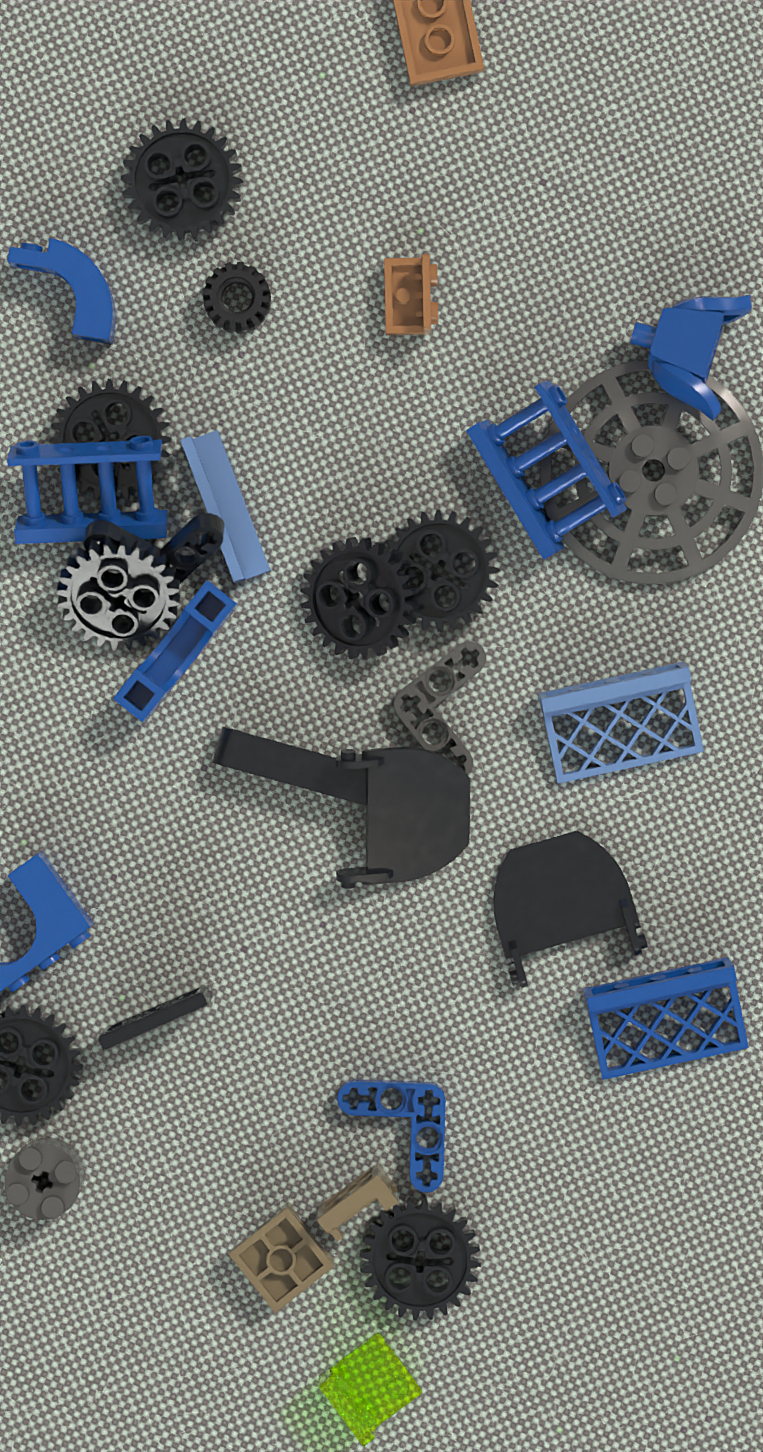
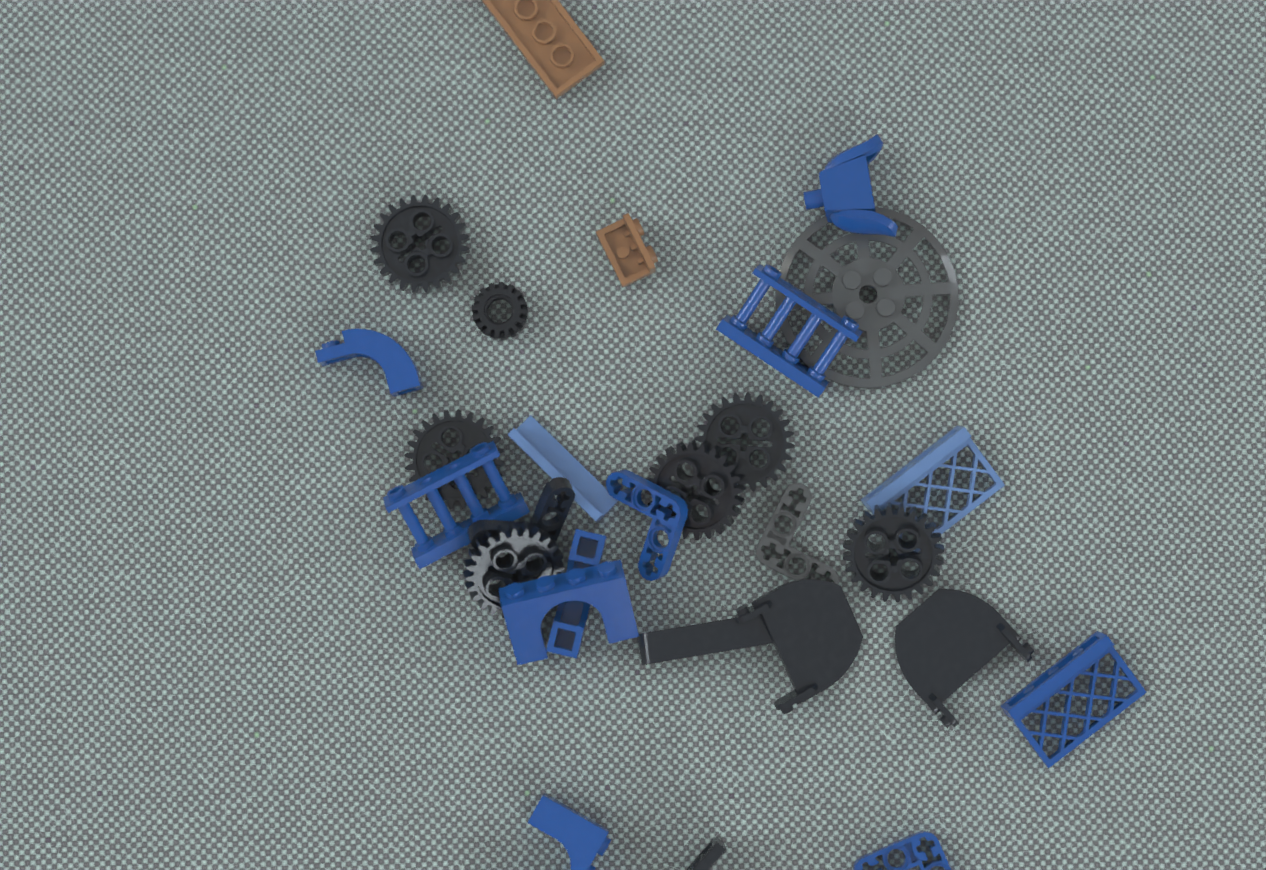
camera: 20 degrees left, 5 degrees down
(203, 654) = (597, 585): none -> blue arch
(307, 610) = (661, 519): none -> blue beam
(554, 737) = (890, 525): none -> black gear

